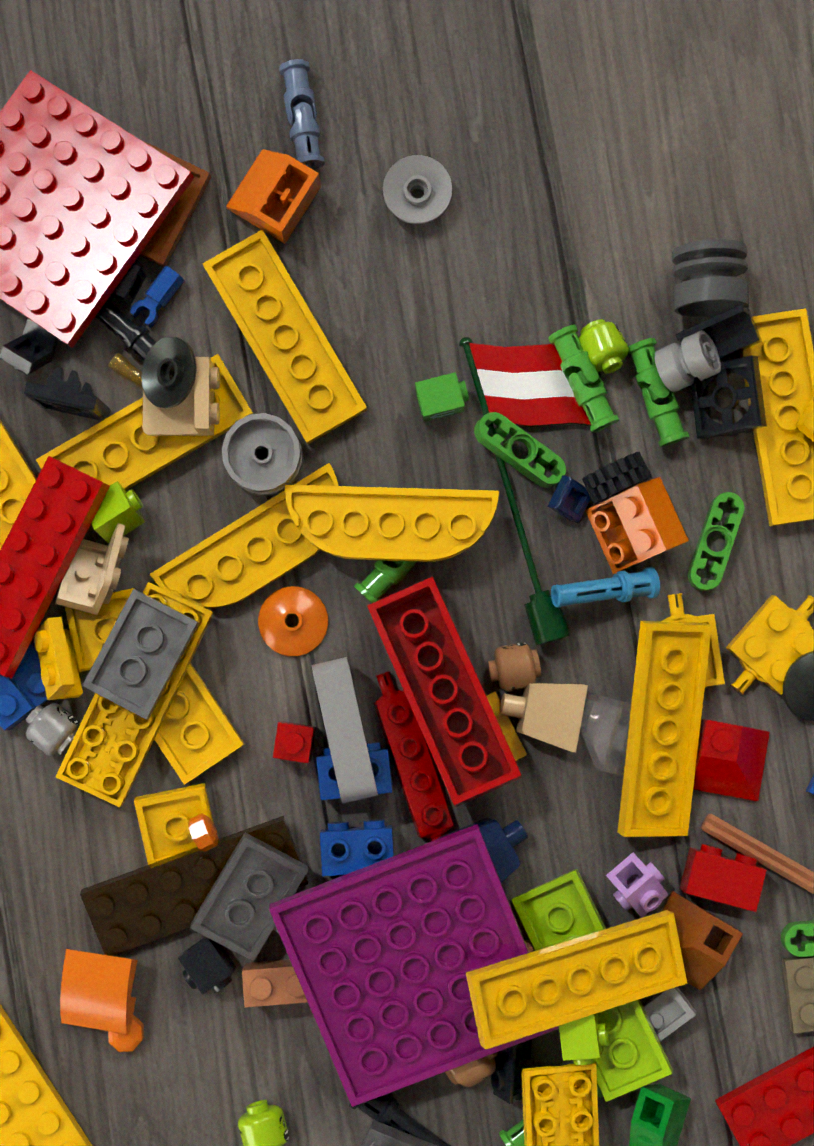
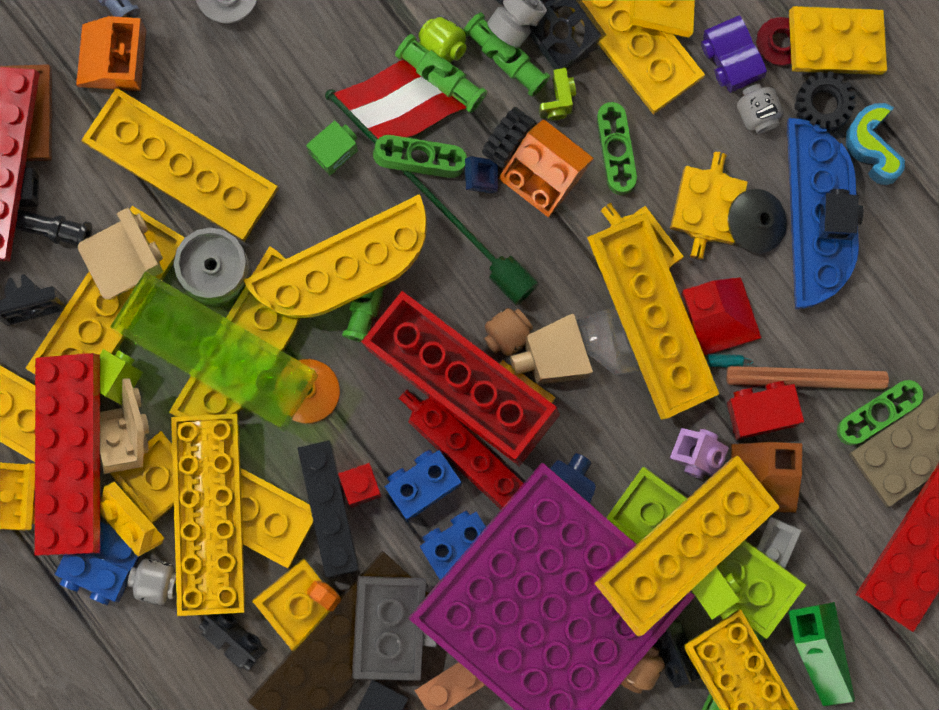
camera: 30 degrees left, 5 degrees down
(106, 836) = (244, 646): none -> black hinge
(121, 365) = (56, 257): clear yellow piece -> none
(140, 654) = (196, 475): flat silver plate -> none
(158, 295) = (57, 184): blue bar -> none
(168, 372) = (101, 237): pearl dark grey dish -> none
(219, 541) = (214, 351): none -> clear neon green brick
(251, 750) = (328, 510): none -> black arch
(344, 730) = (395, 449): light grey beam -> none
(621, 586) = (557, 223): dark azure pin -> none
(695, 457) = (564, 91): none -> lime bracket
(711, 806) = (726, 360): none -> teal piece

